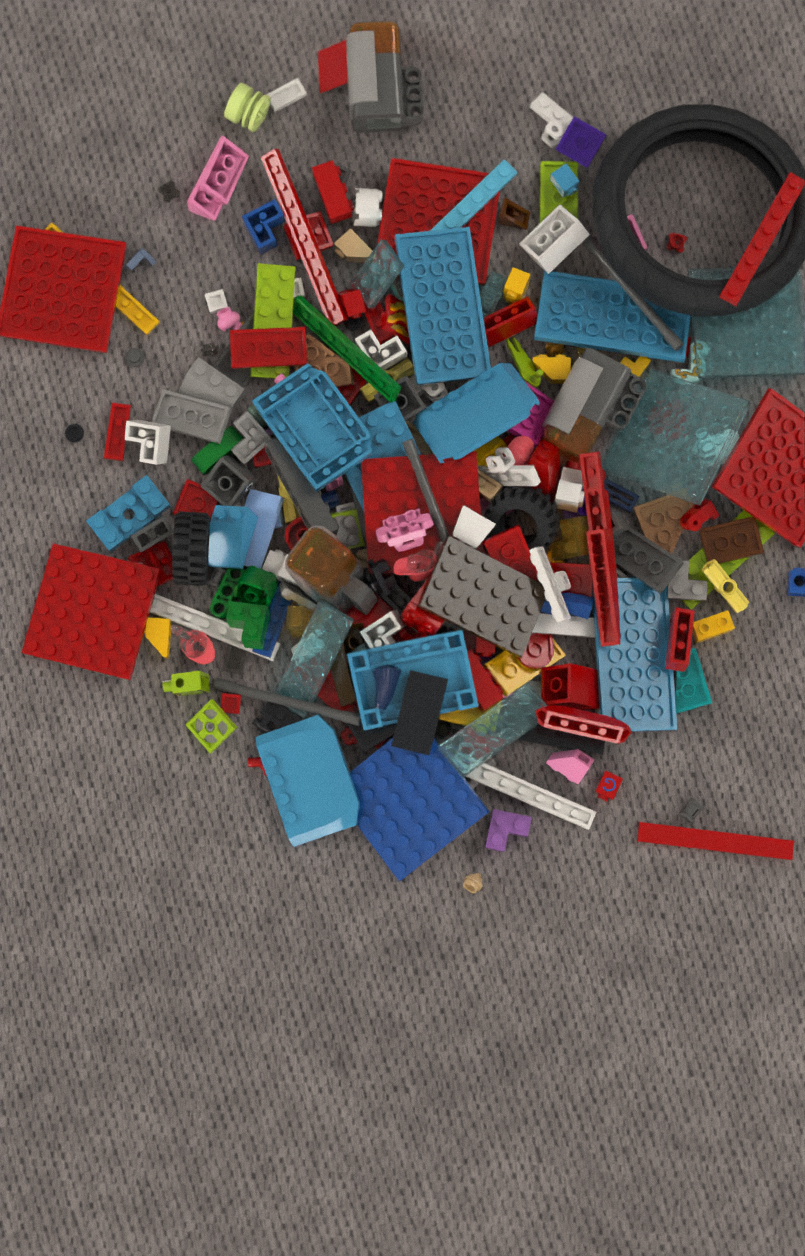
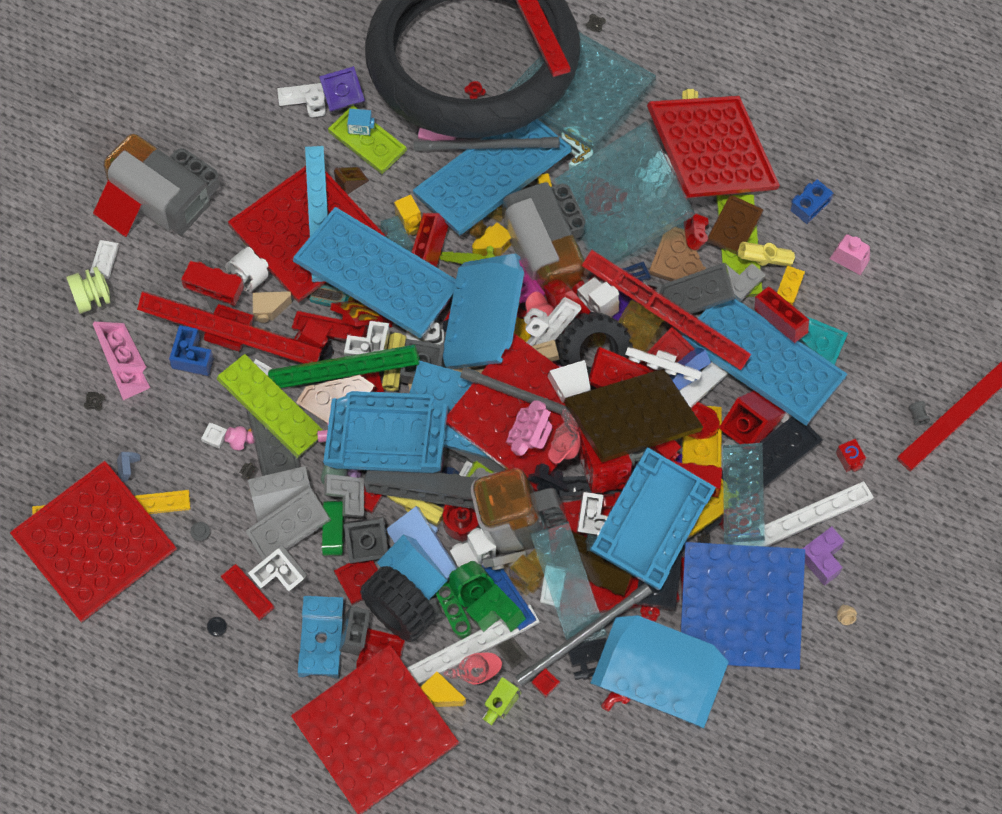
camera: 55 degrees left, 15 degrees down
(211, 726) = (551, 711): lime piece -> none
(268, 347) = (289, 422): red plate -> none
(377, 273) = (309, 296): clear light blue plate -> none
(386, 683) = (639, 538): dark blue piece -> none
(419, 713) = (683, 534): black tile -> none
(554, 239) = (396, 162): white slope -> none
(571, 764) = (811, 467): bright pink slope -> none
(583, 723) = (791, 426): red brick -> none
(786, 652) = (852, 254): none -> bright pink torso

